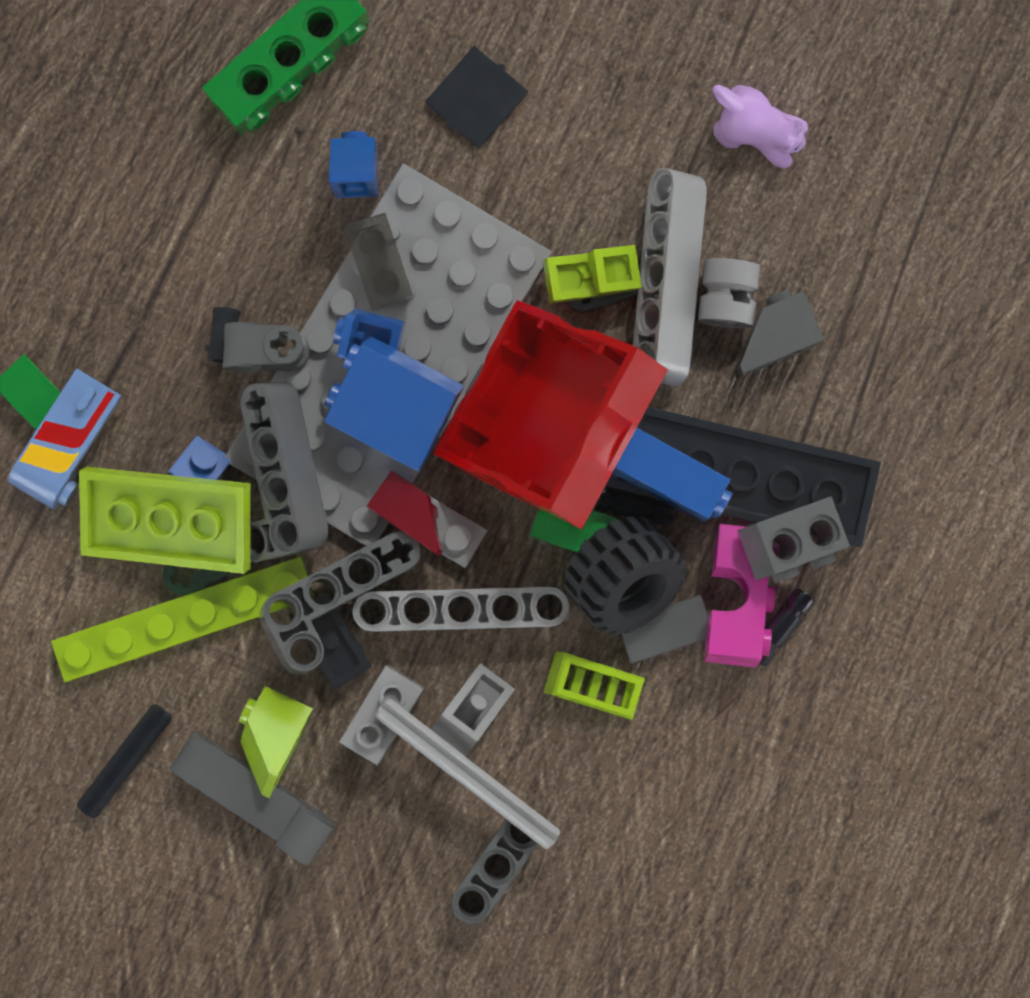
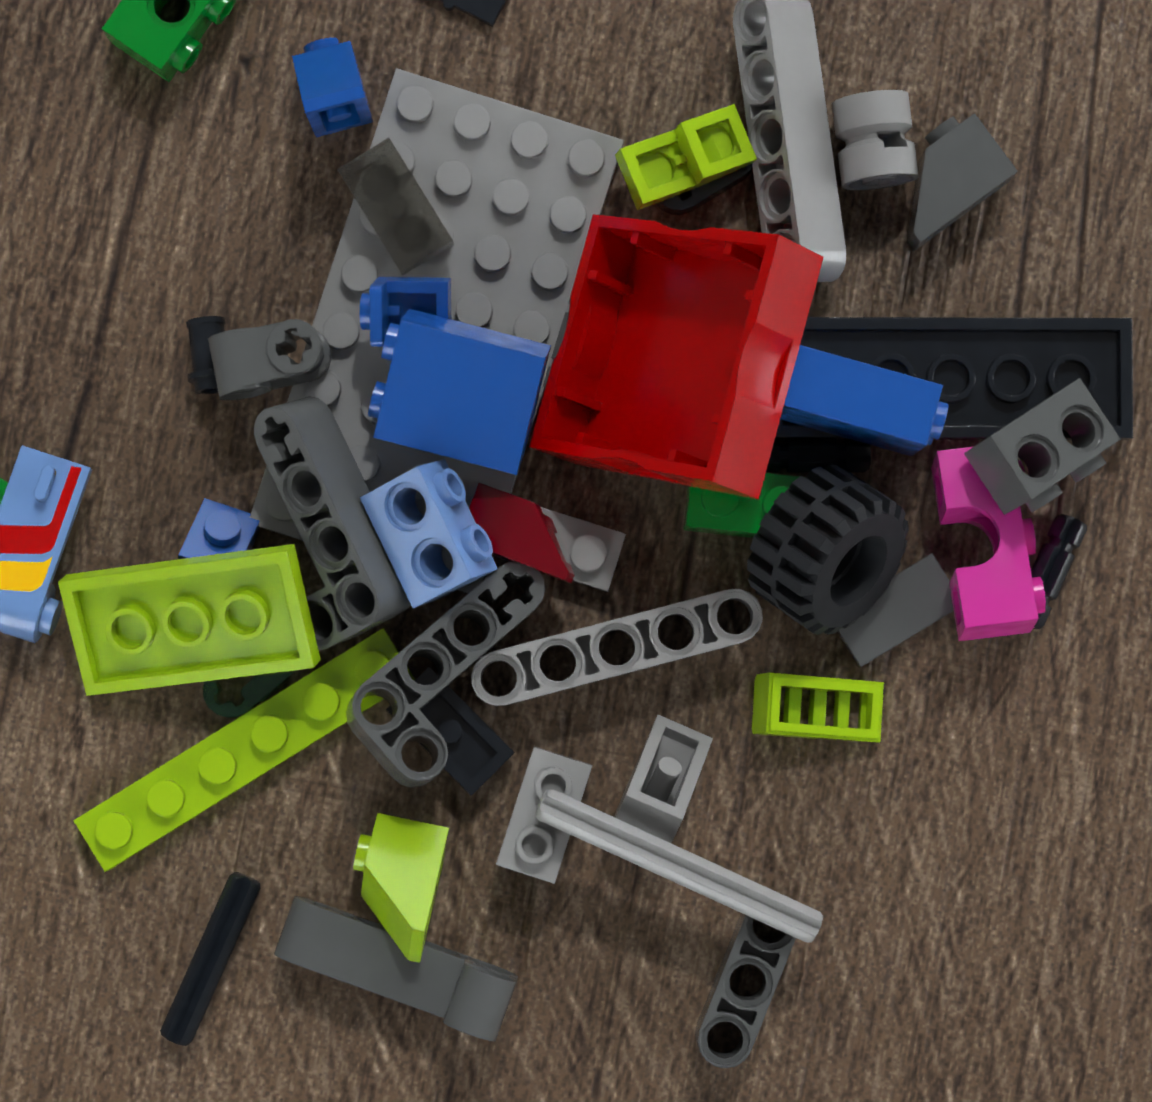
camera: 15 degrees left, 0 degrees up
(337, 500) = (417, 540): none -> medium blue brick

